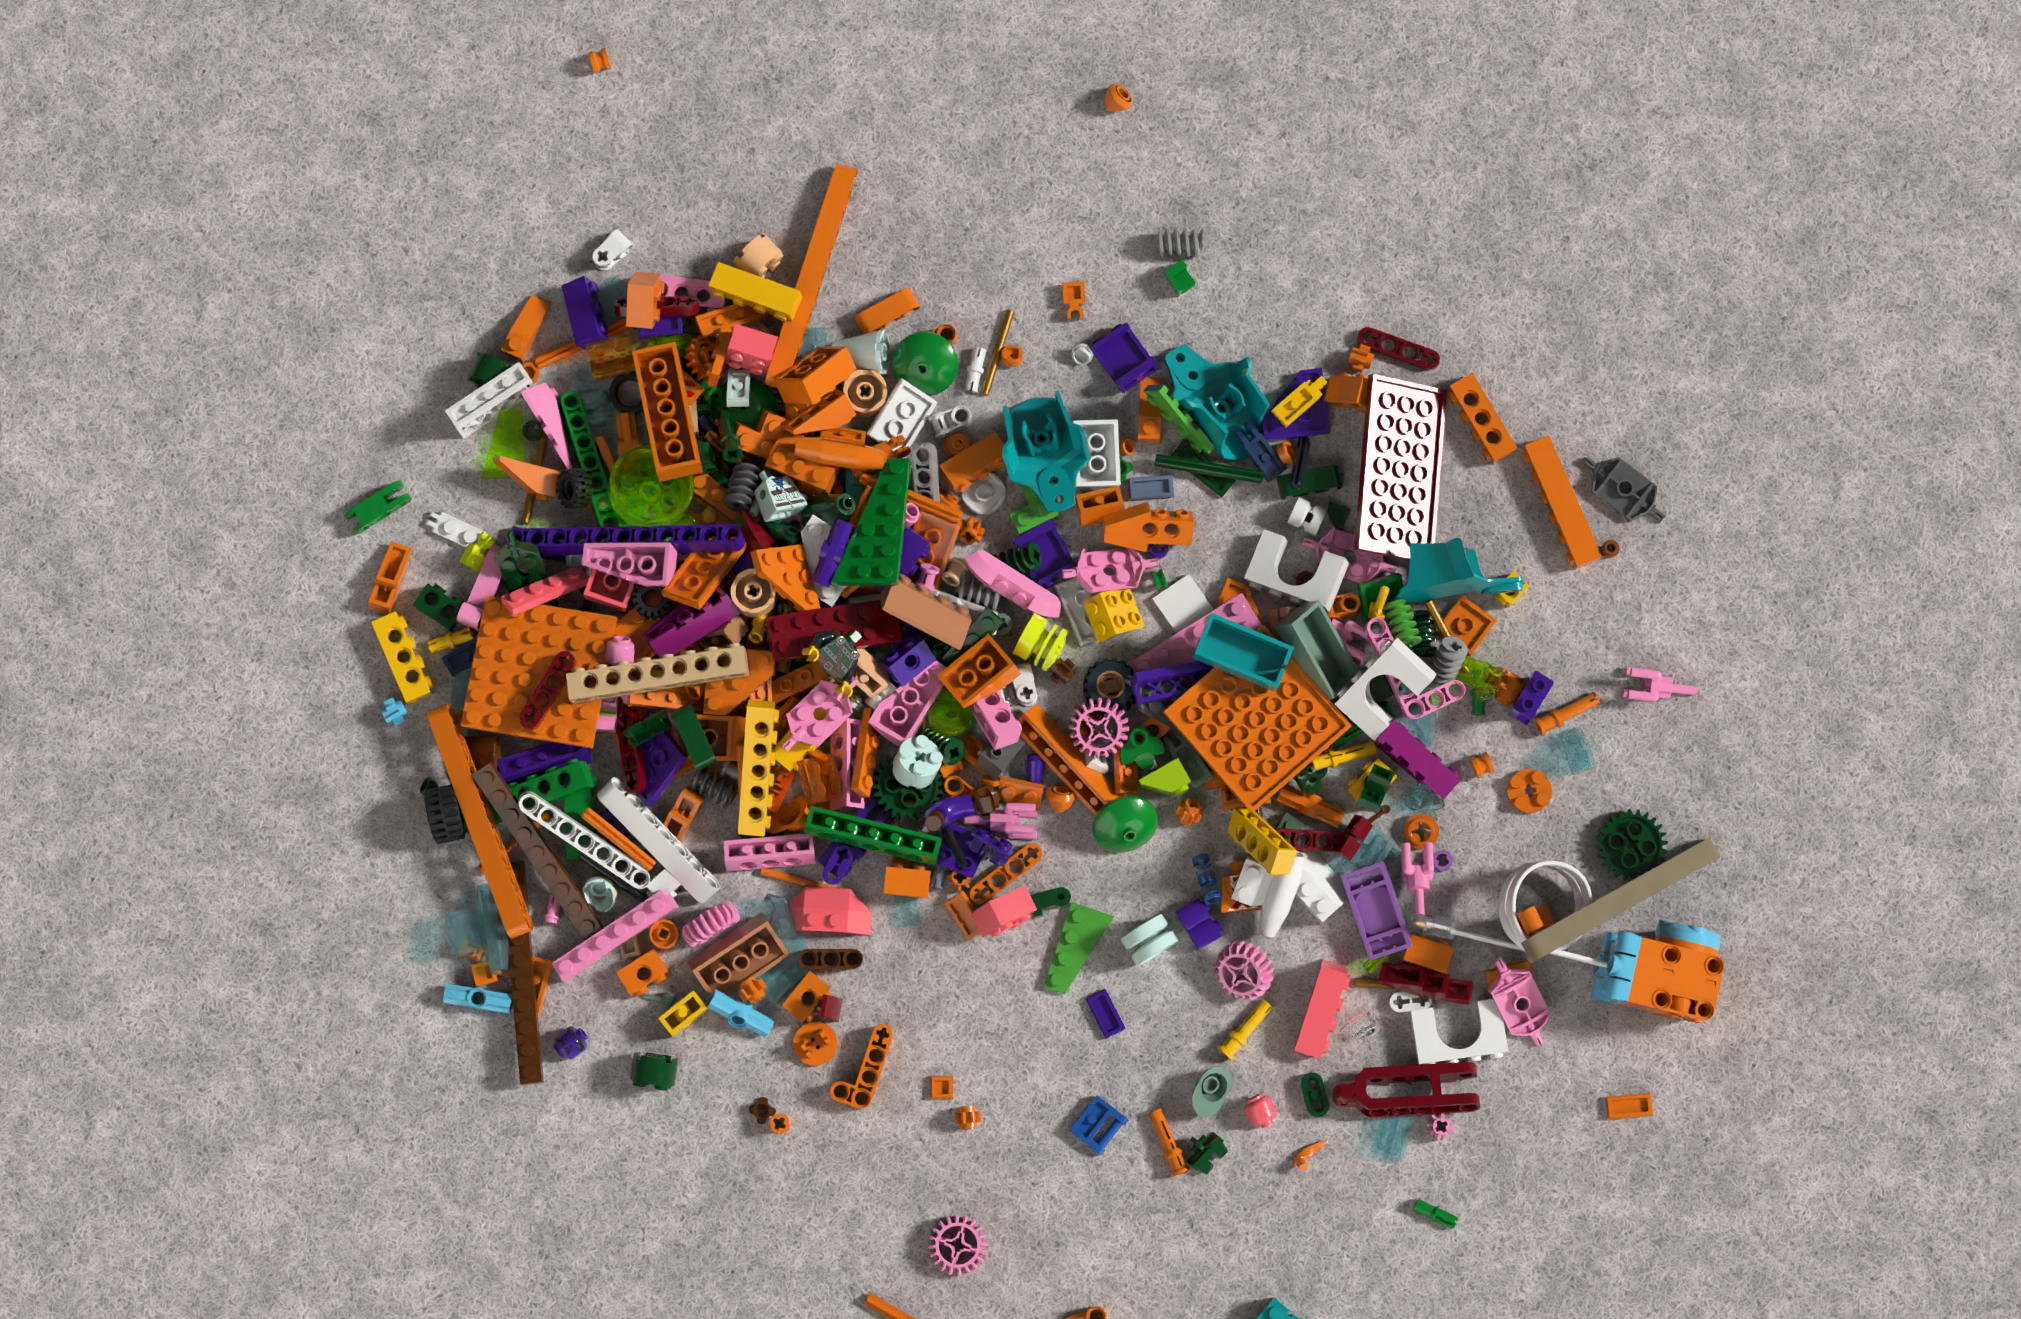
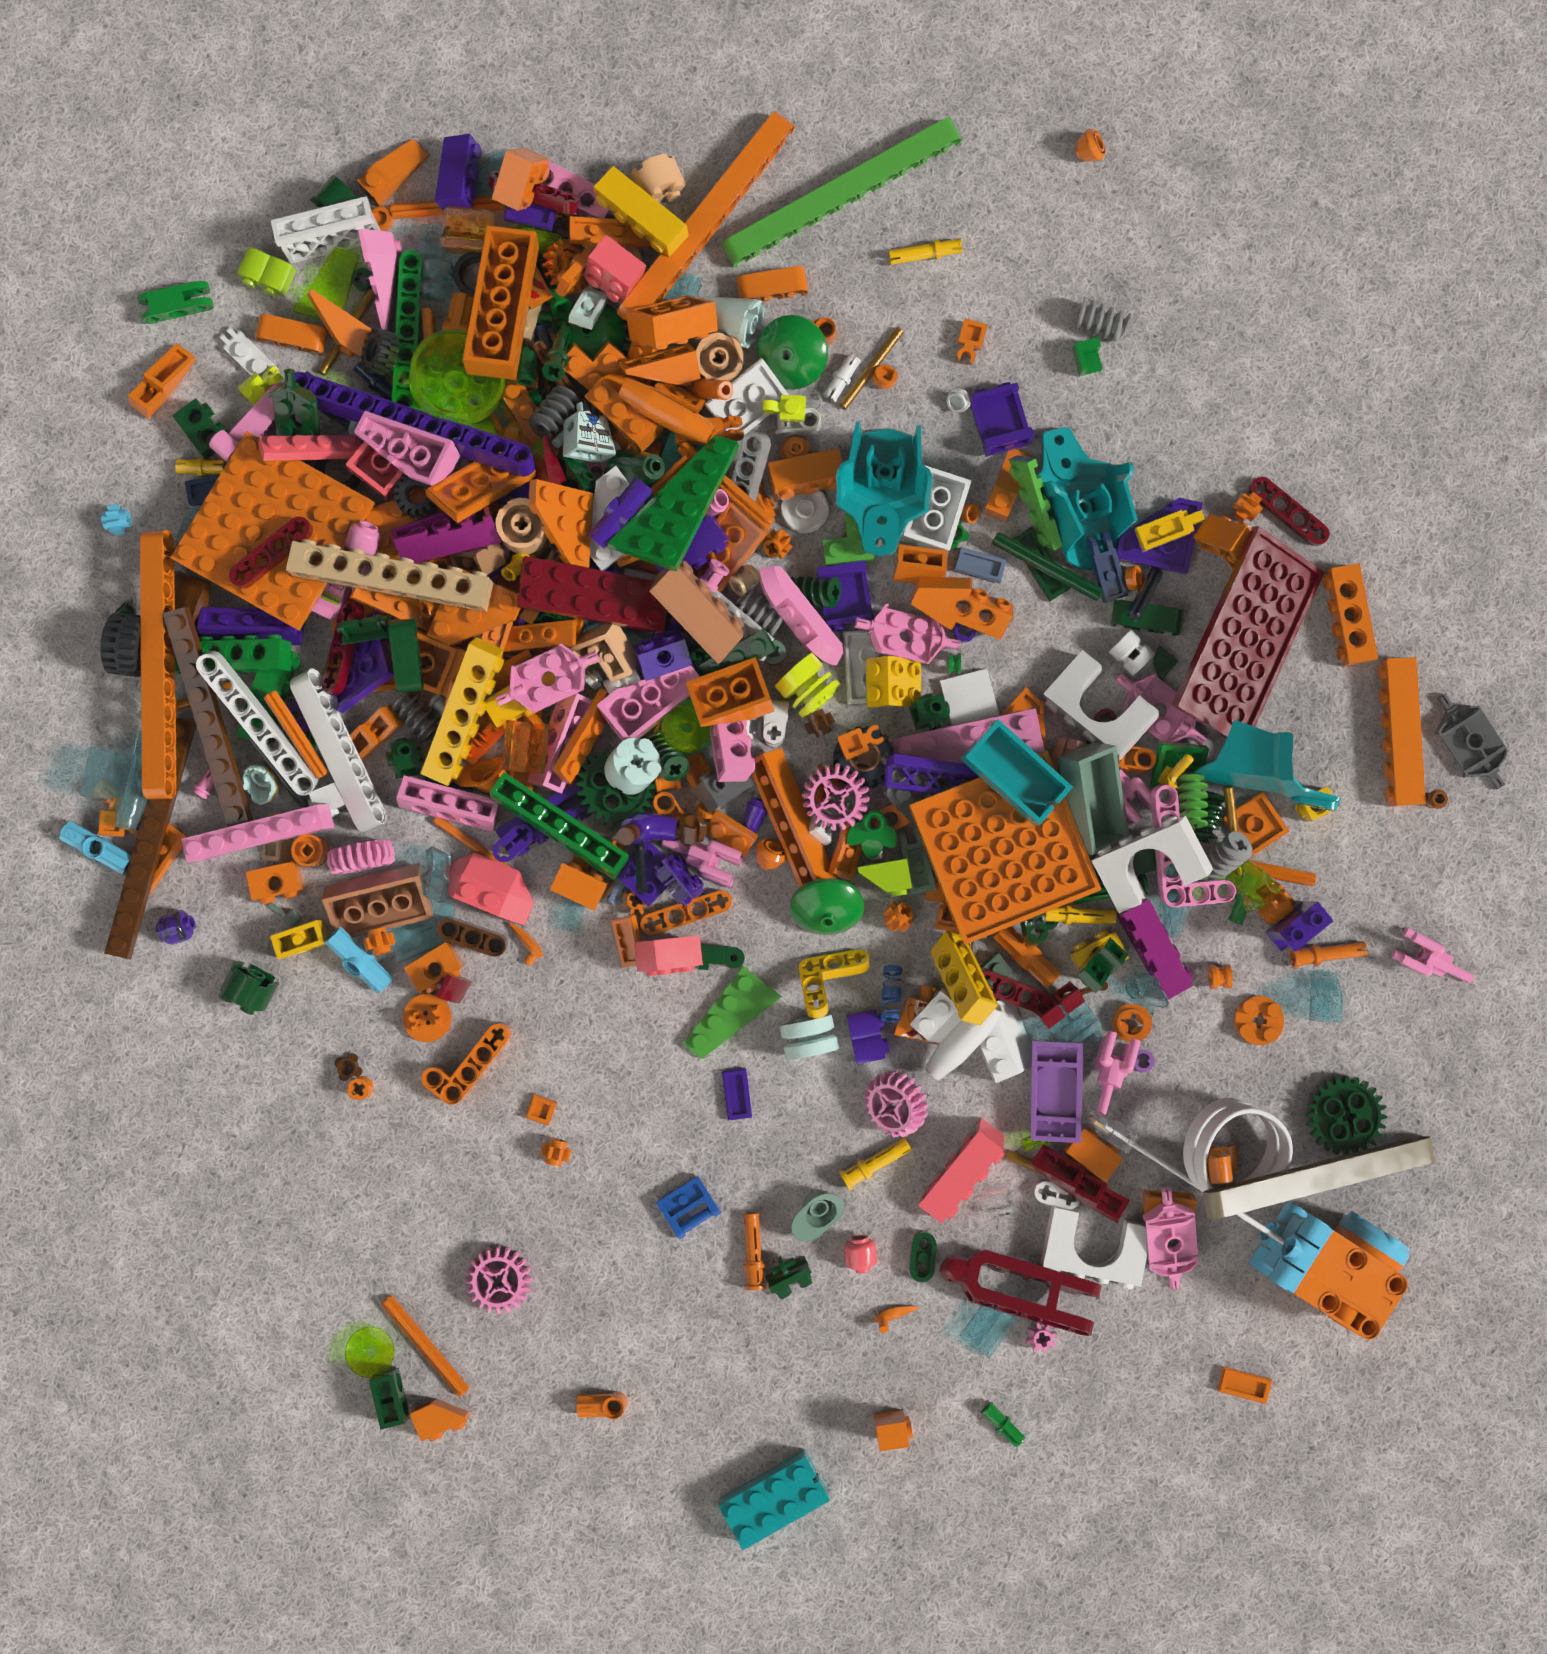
camera: 20 degrees right, 5 degrees up
(384, 628) = (135, 432): yellow brick -> none
(447, 453) = (267, 272): none -> lime brick
(486, 498) = (292, 333): none -> orange beam
(578, 515) = (376, 383): none -> dark blue pin
(613, 248) = (512, 119): white piece -> none
(717, 826) = (404, 757): none -> dark green brick
(836, 656) = (583, 623): torso -> none
(869, 420) = (711, 389): none -> orange axle
(878, 947) = (527, 941): none -> orange bar
(914, 214) = (840, 191): none -> bright green beam
(940, 412) = (790, 408): none -> neon yellow plate
(1008, 236) = (925, 251): none -> yellow pin
(1099, 675) = (855, 743): none -> orange plate
(1153, 627) = (929, 712): none -> dark green brick
(1168, 864) = (817, 976): none -> yellow beam
(1341, 1248) = (893, 1430): none -> orange brick
(1508, 657) = (1287, 874): none -> orange axle

